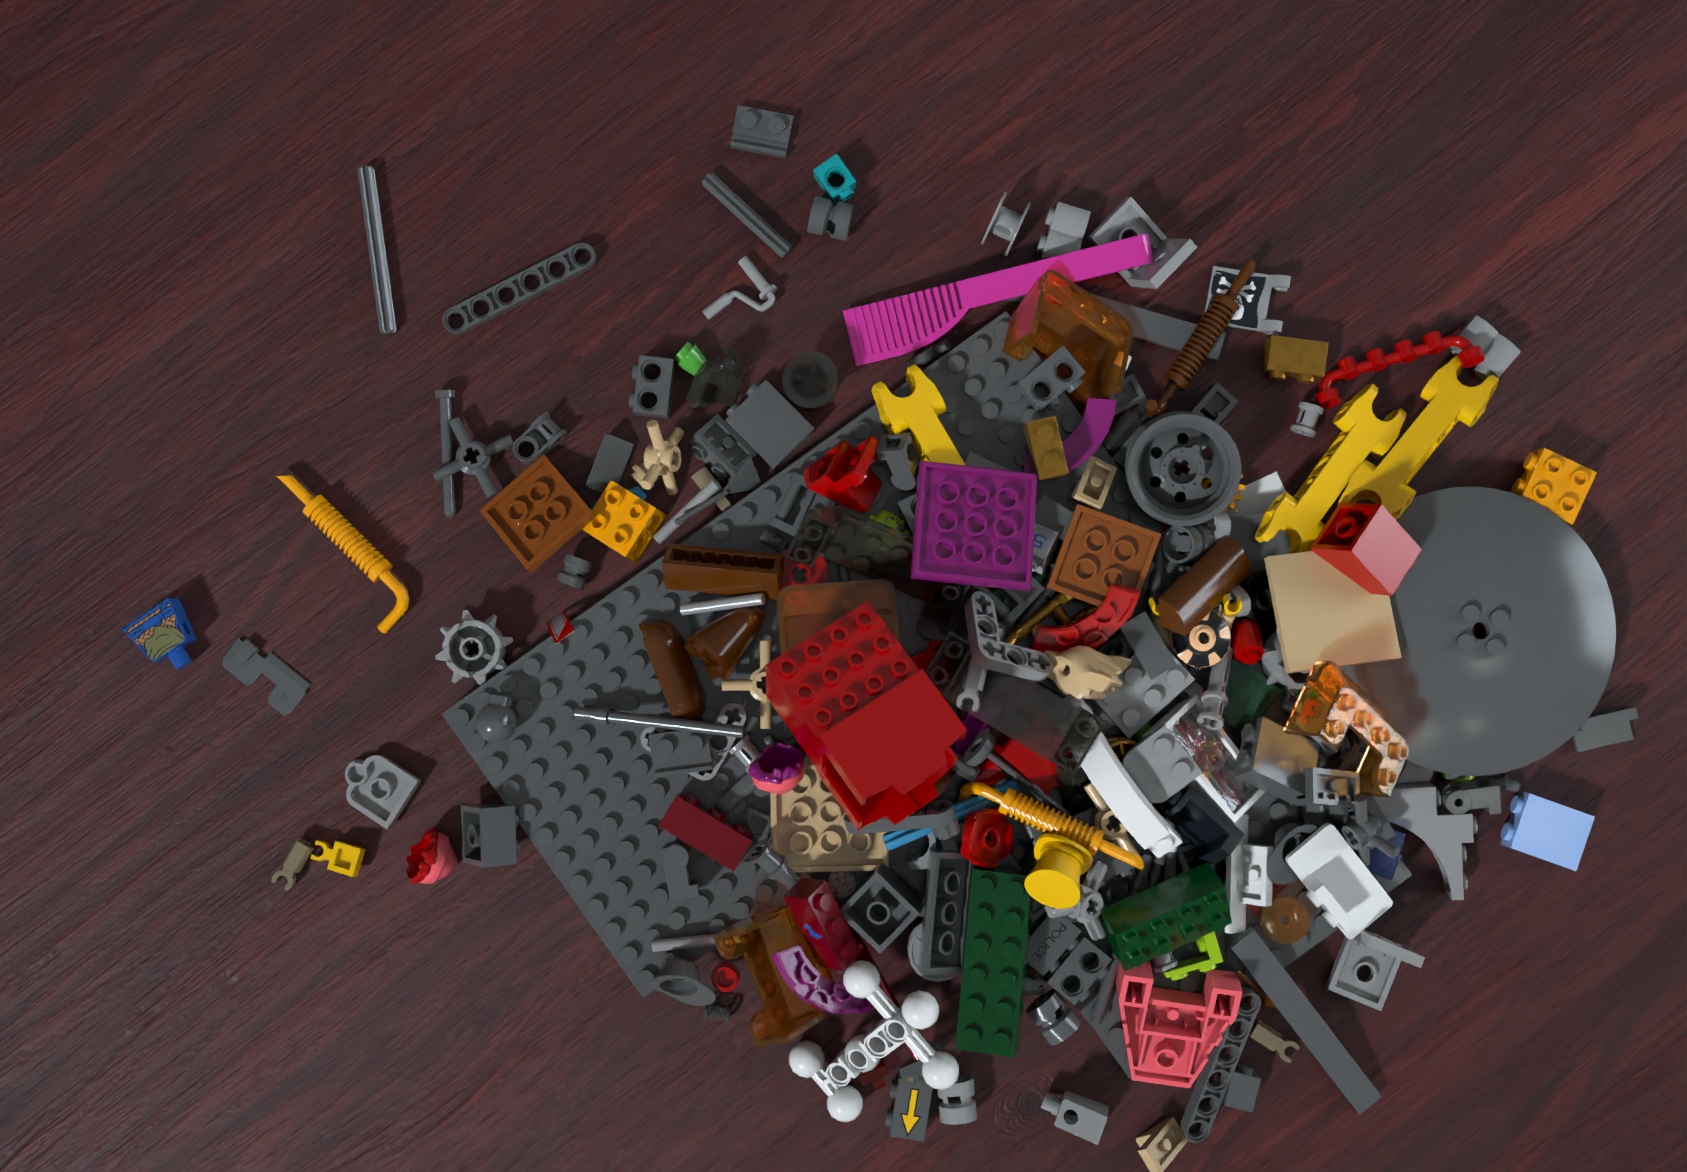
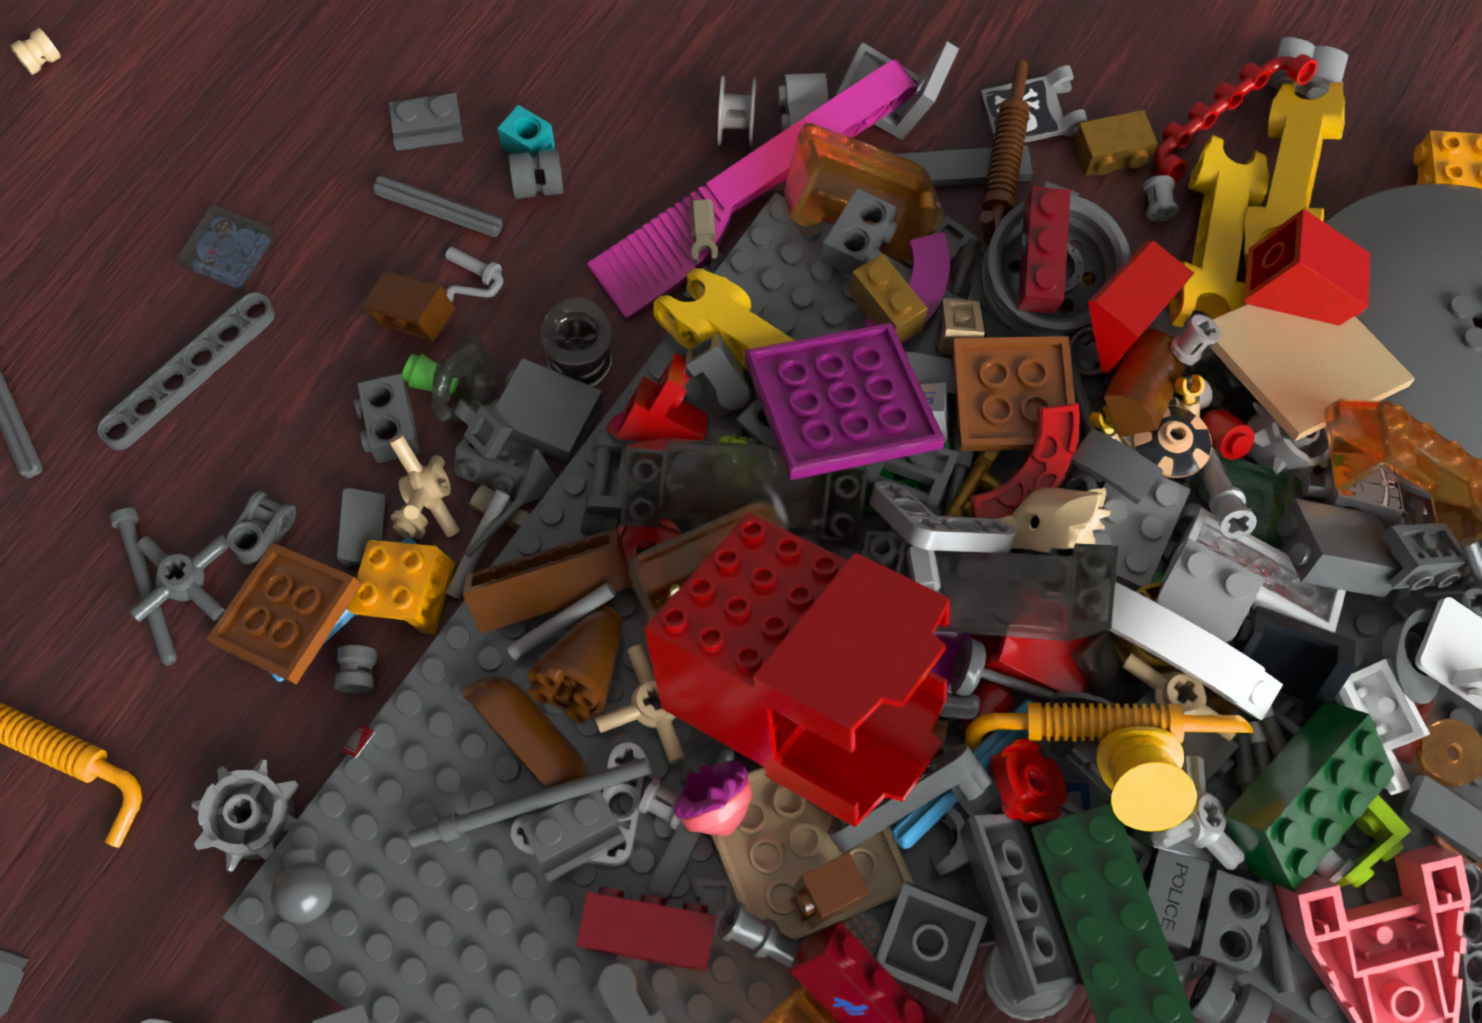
camera: 20 degrees left, 20 degrees down
(575, 190) = (226, 247): none -> clear smoke tile
(697, 301) = (409, 305): none -> reddish brown brick
(720, 429) = (486, 427): none -> dark grey plate
(826, 858) = (828, 891): none -> reddish brown brick
(938, 322) = (703, 229): none -> dark tan bar
(1171, 464) = (1044, 250): none -> dark red brick
(1224, 525) = (1134, 300): none -> red slope
(1261, 566) = (1195, 339): none -> light grey bush

